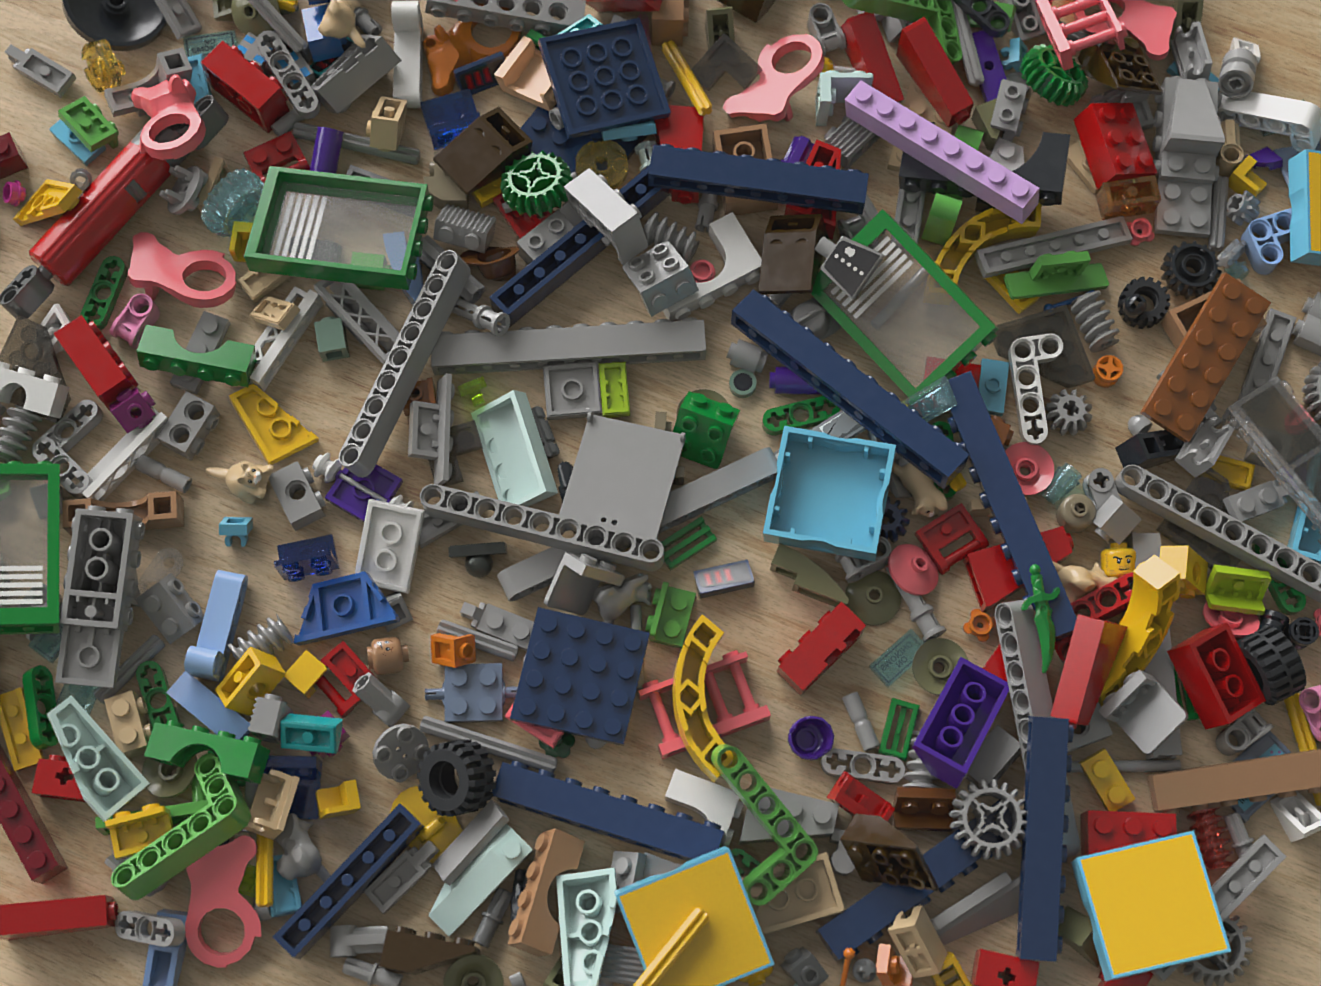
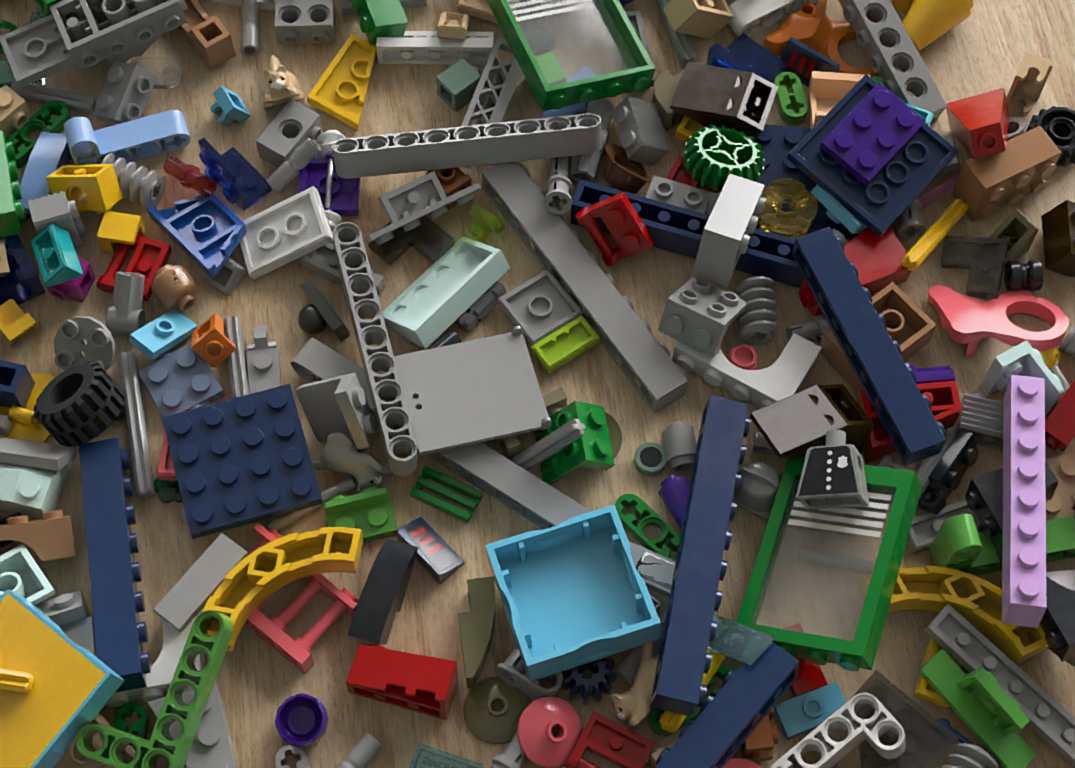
camera: 60 degrees right, 10 degrees down
(286, 593) = (190, 176): none -> clear red pin
(332, 511) = (296, 162): none -> light grey piece
(424, 685) = (162, 334): none -> medium azure plate
(502, 100) = (796, 96): none -> bright green beam
(546, 288) = (622, 224): none -> red plate
(592, 66) = (872, 133): none -> dark purple plate
(666, 755) = (199, 582): none -> light grey tile
(701, 446) = (550, 444): none -> light grey axle
(743, 627) = (383, 592): none -> black slope
(754, 39) = (1023, 275): none -> black wheel
(877, 191) = (949, 472): none -> black hinge

